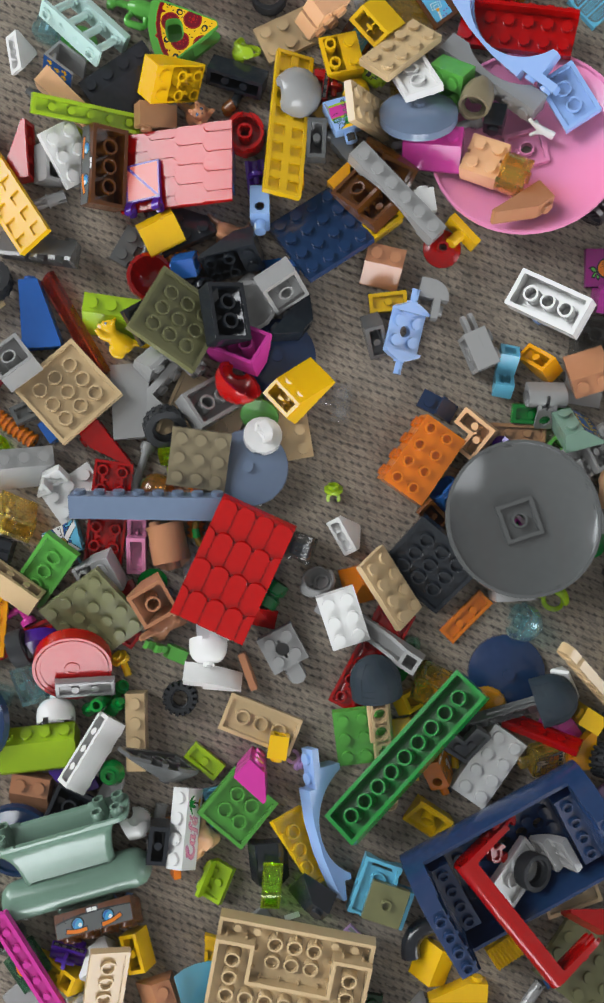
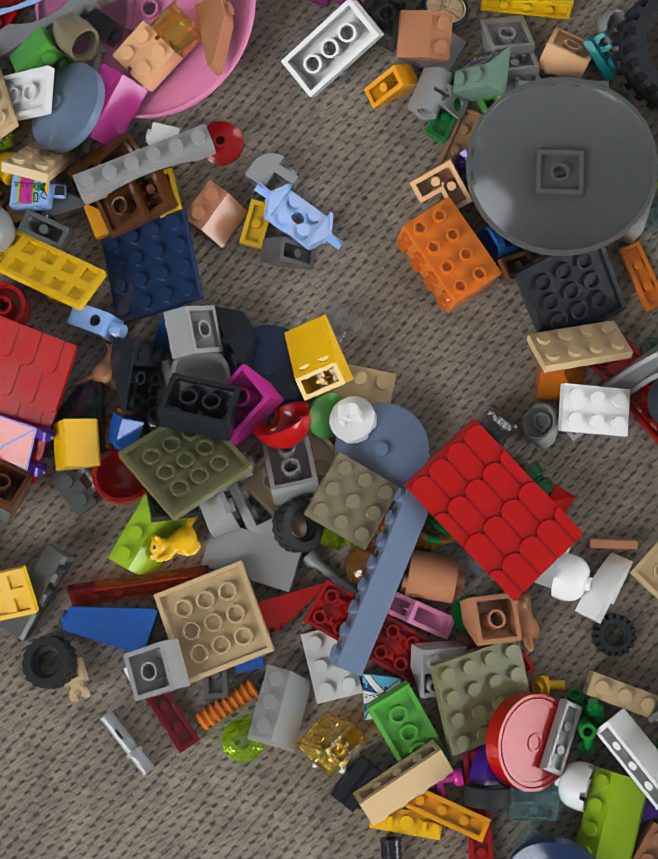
camera: 65 degrees left, 5 degrees down
(52, 477) = (303, 682): white slope -> none
(170, 651) = (556, 624): bright green piece -> none
(254, 173) = (54, 314): dark purple hips -> none
(284, 652) = (606, 493): light grey brick -> none
(333, 489) = (442, 367): lime plate -> none
(346, 534) = (498, 373): white slope -> none
(437, 406) = (393, 216): dark blue slope -> none
(461, 233) = (214, 114): yellow tile -> none
(477, 345) = (346, 144): light grey brick -> none
(503, 378) = (382, 125): medium azure brick -> none

